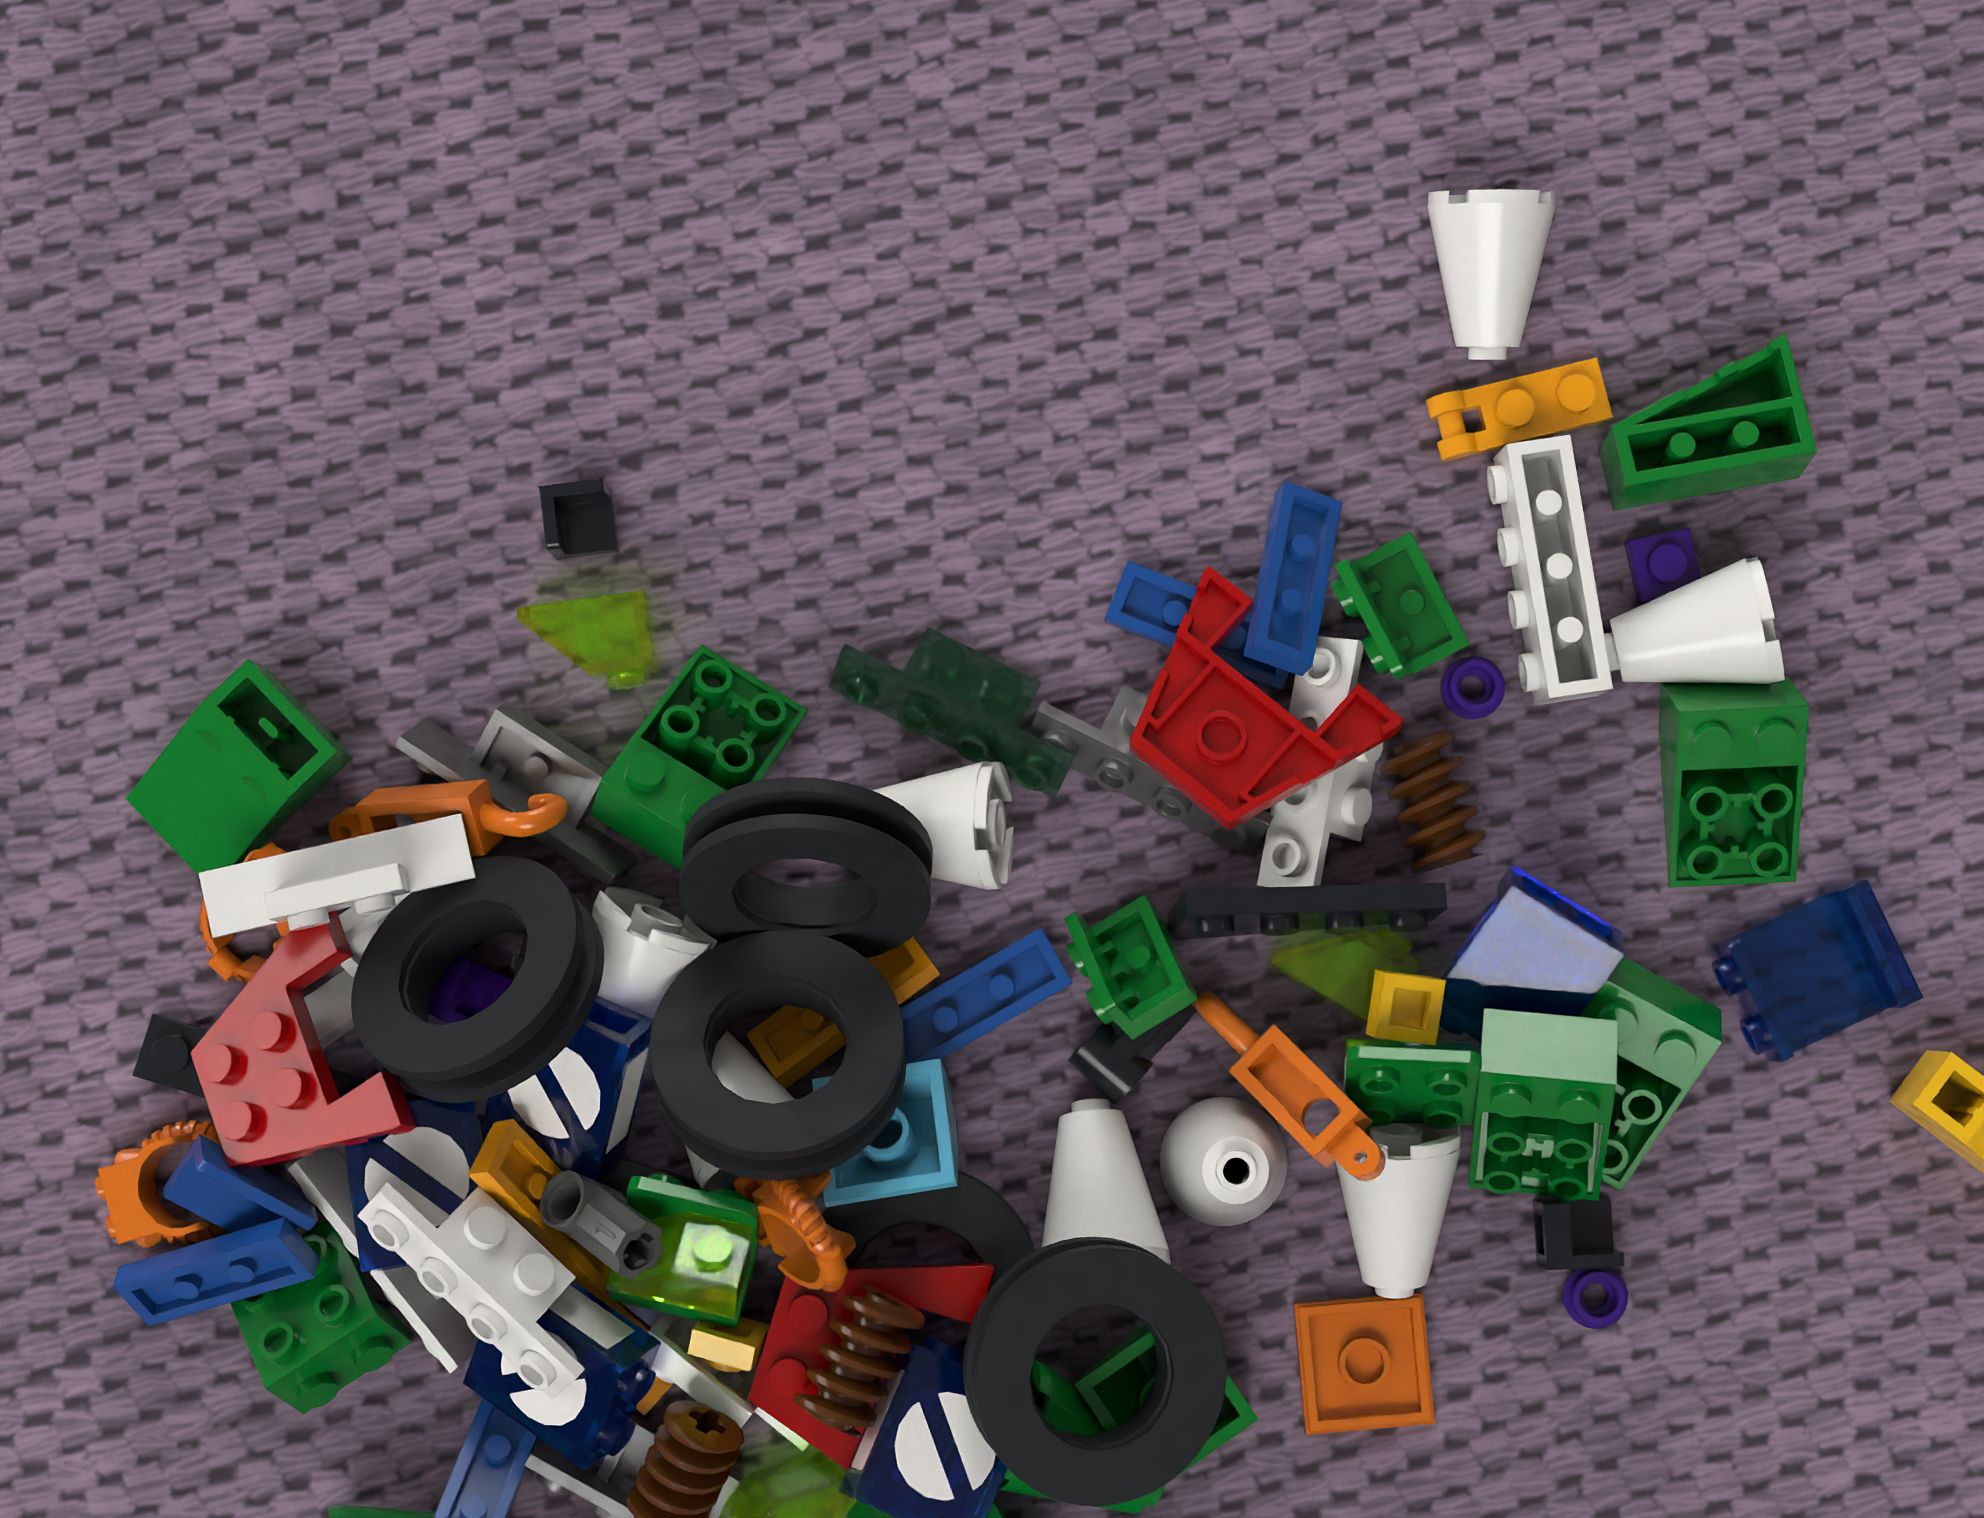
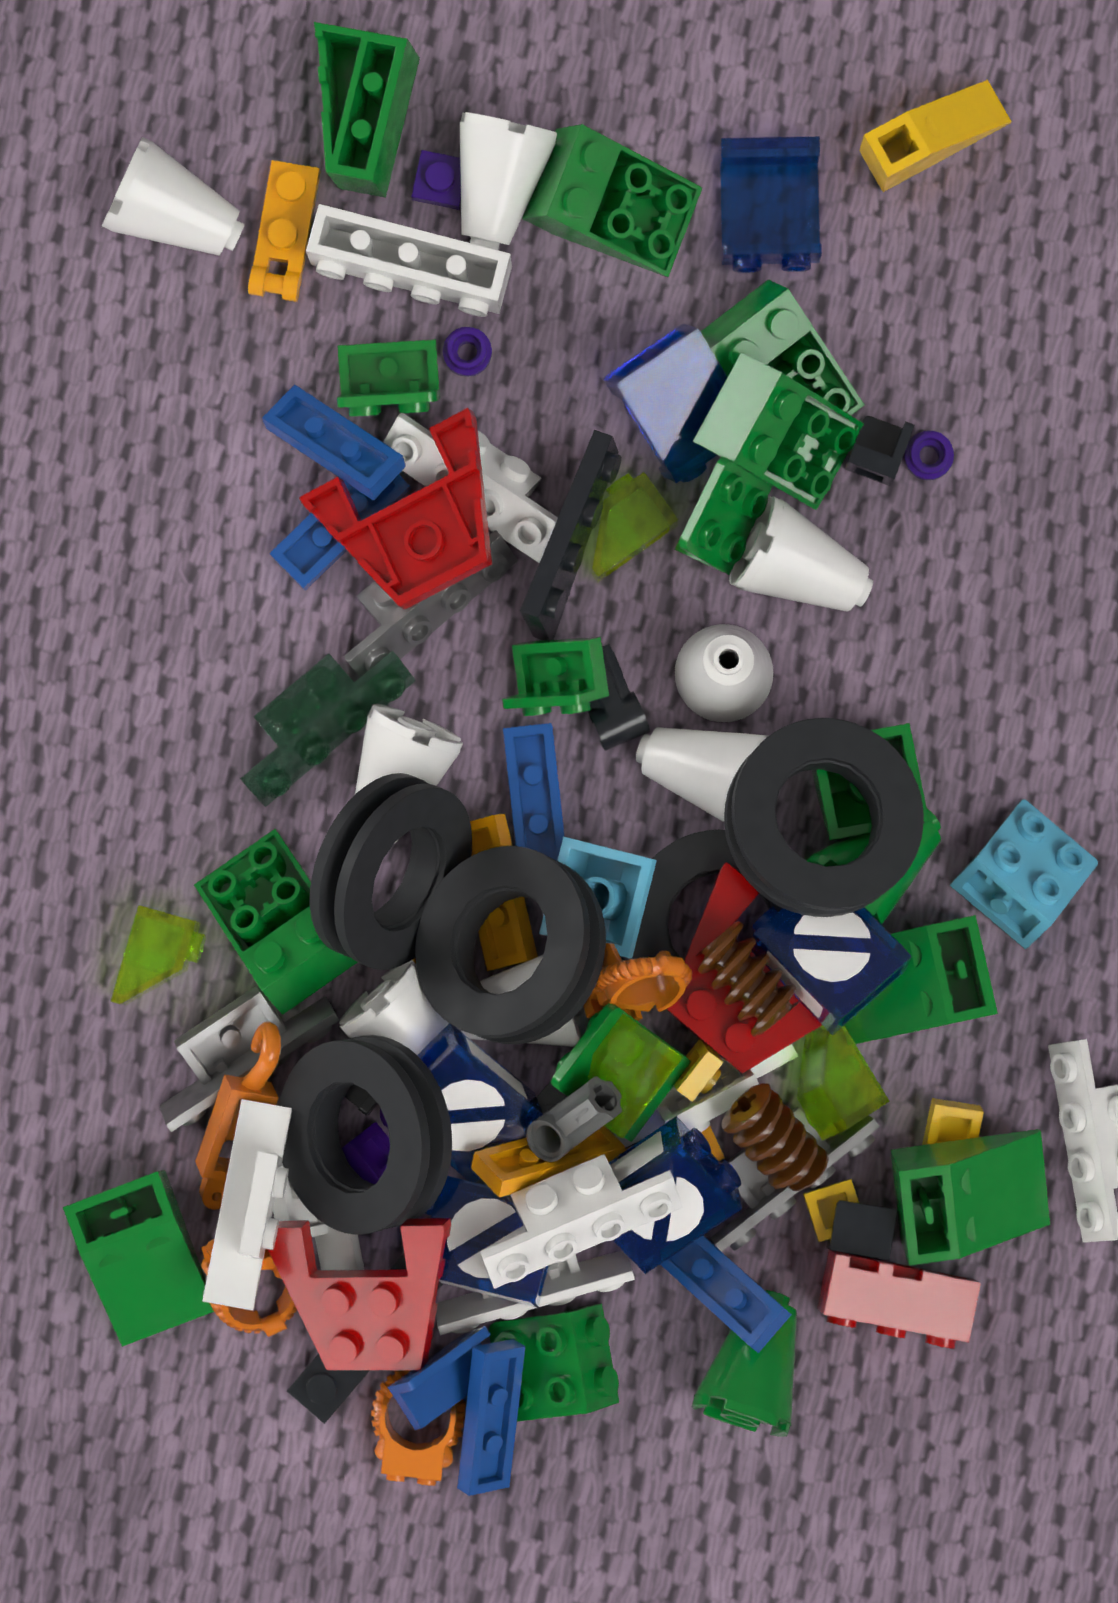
camera: 60 degrees left, 0 degrees up
(578, 518) = (65, 931): black panel -> none
(1288, 1084) = (687, 601): orange piece -> none
(1363, 1363) = (906, 636): orange tile -> none
(1405, 1007) = (669, 495): yellow plate -> none
(1432, 802) = (535, 415): reddish brown piece -> none

